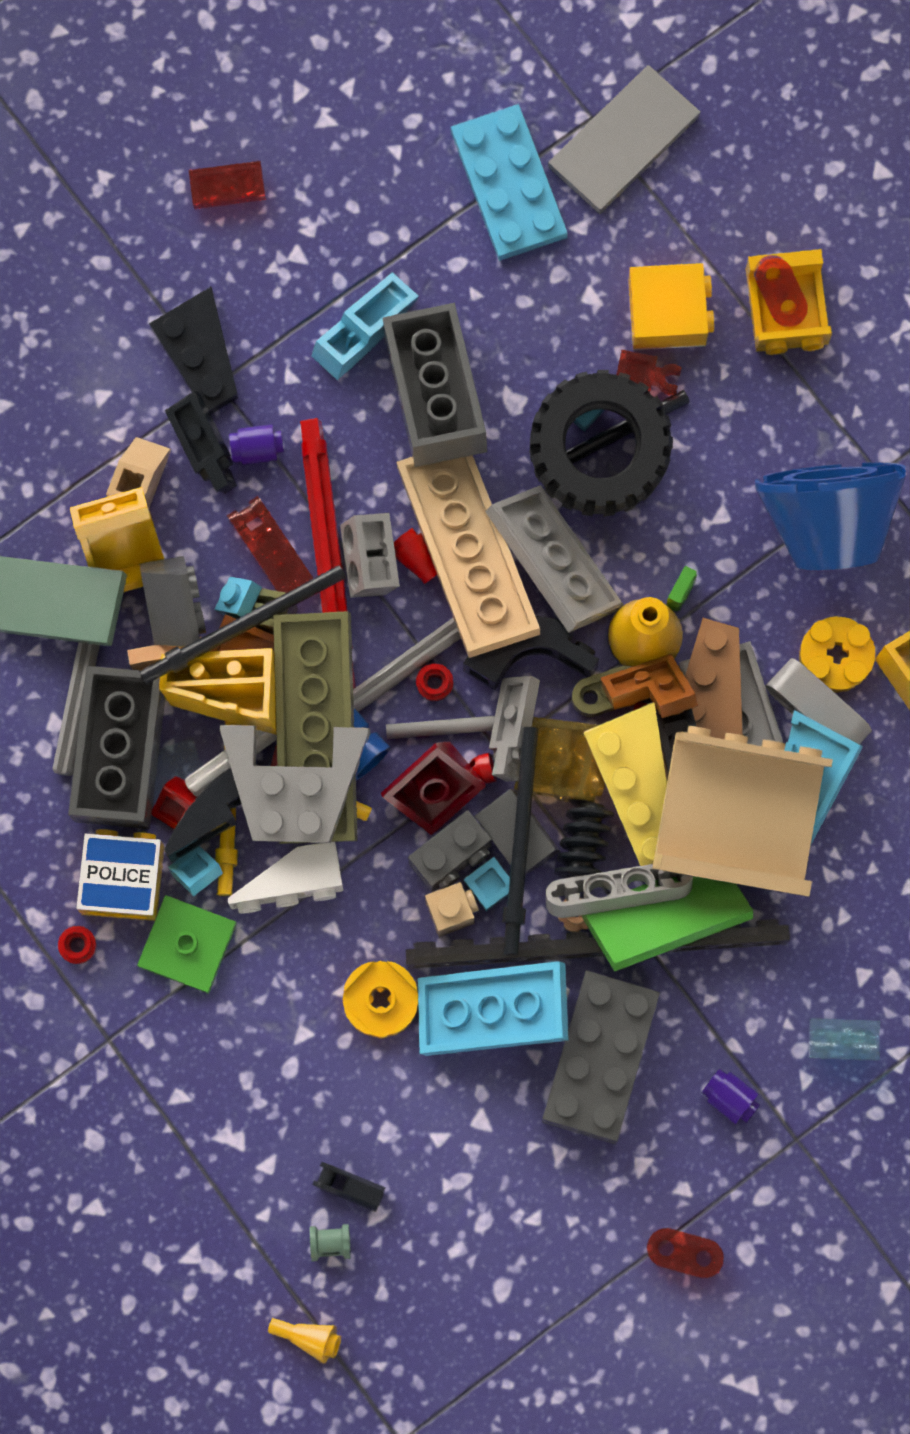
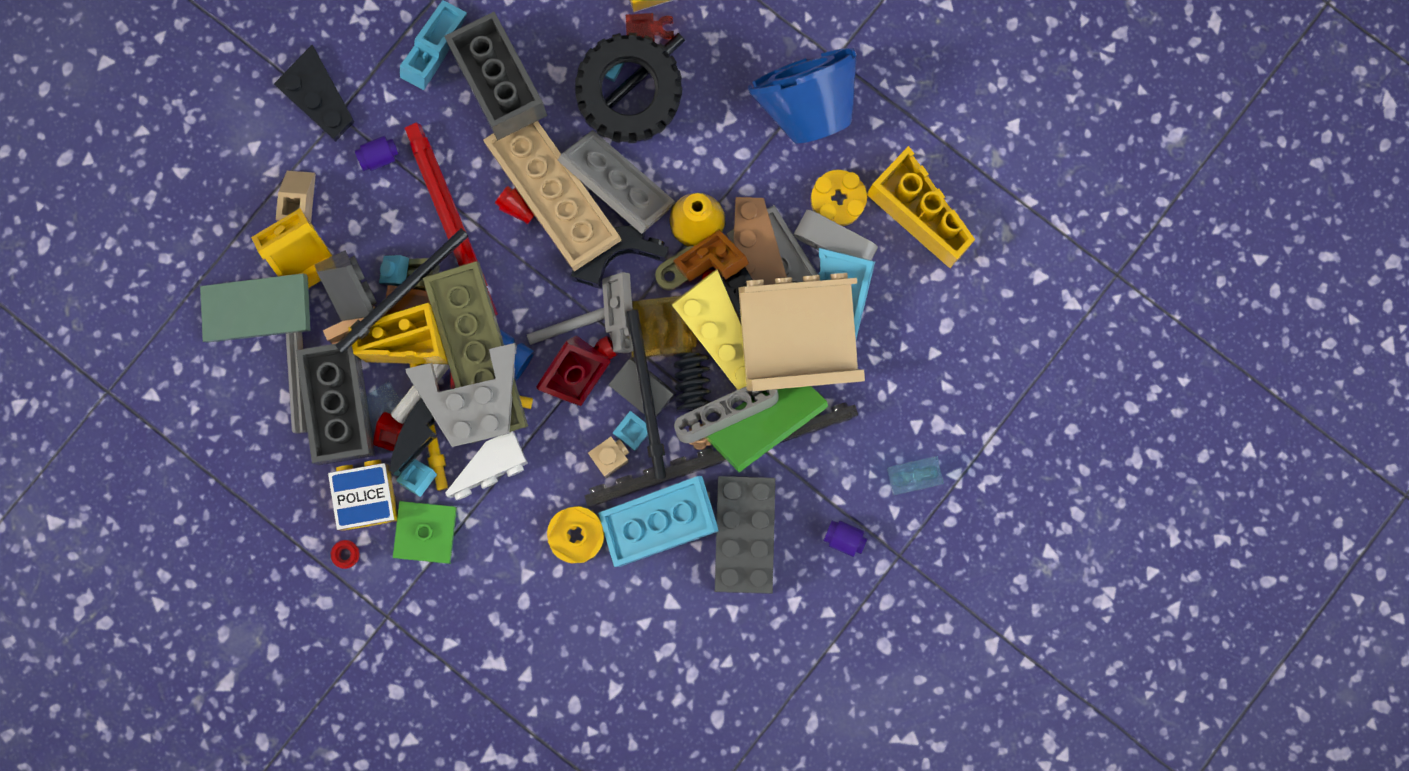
camera: 20 degrees left, 5 degrees up
(202, 441) = (336, 161): black hinge -> none
(270, 547) = (407, 227): clear red plate -> none
(330, 1242) = (585, 720): sand green bush -> none
(356, 1189) = (593, 677): black bar -> none
(369, 555) = (481, 214): light grey brick -> none
(405, 664) = (529, 287): light grey axle -> none
(430, 671) = (550, 286): red plate -> none
(450, 852) = (597, 416): dark grey brick -> none
(681, 589) = (715, 179): bright green tile -> none
(684, 1253) = (841, 658): clear red plate -> none

